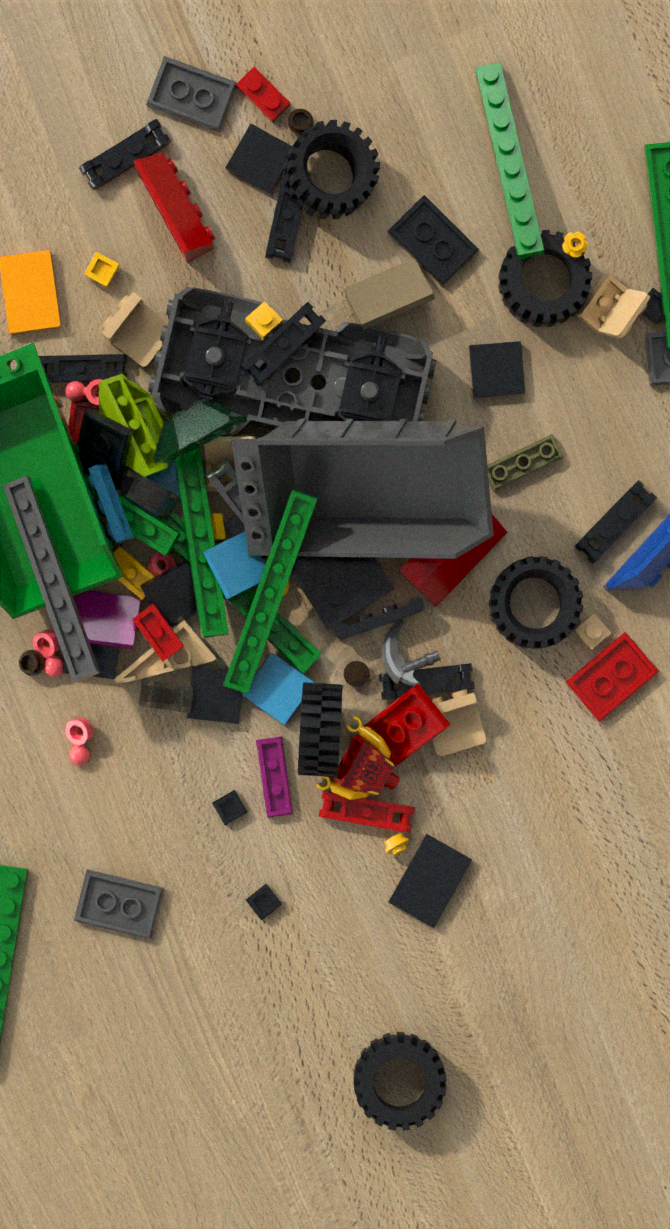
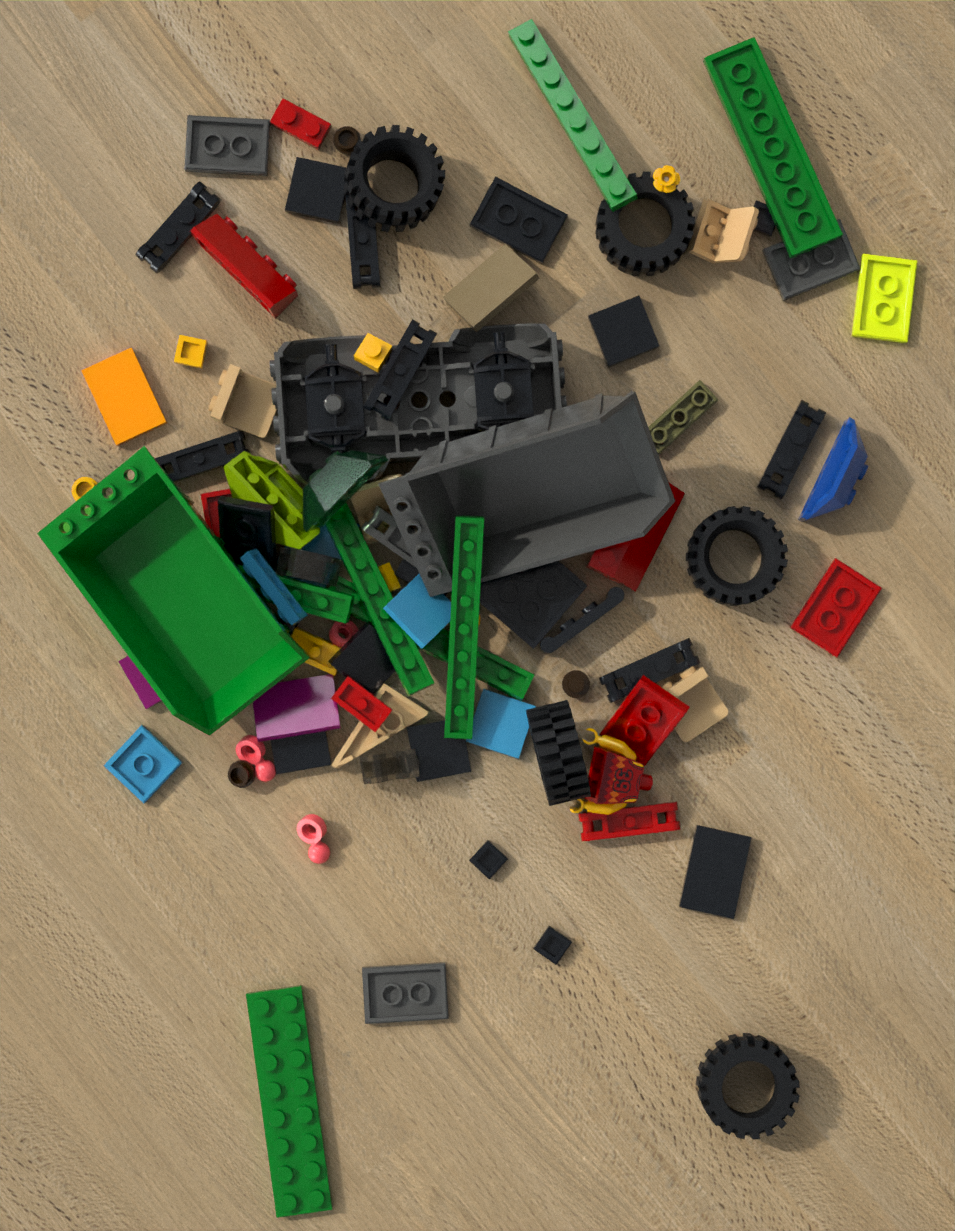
camera: 20 degrees left, 0 degrees up
(51, 579) = (236, 683): dark grey plate -> none
(77, 391) = (203, 483): coral plate -> none
(274, 777) = (524, 814): magenta tile -> none
(395, 665) = (614, 664): dark grey piece -> none
(396, 844) = (670, 845): yellow plate -> none
(592, 631) = (802, 568): tan plate -> none

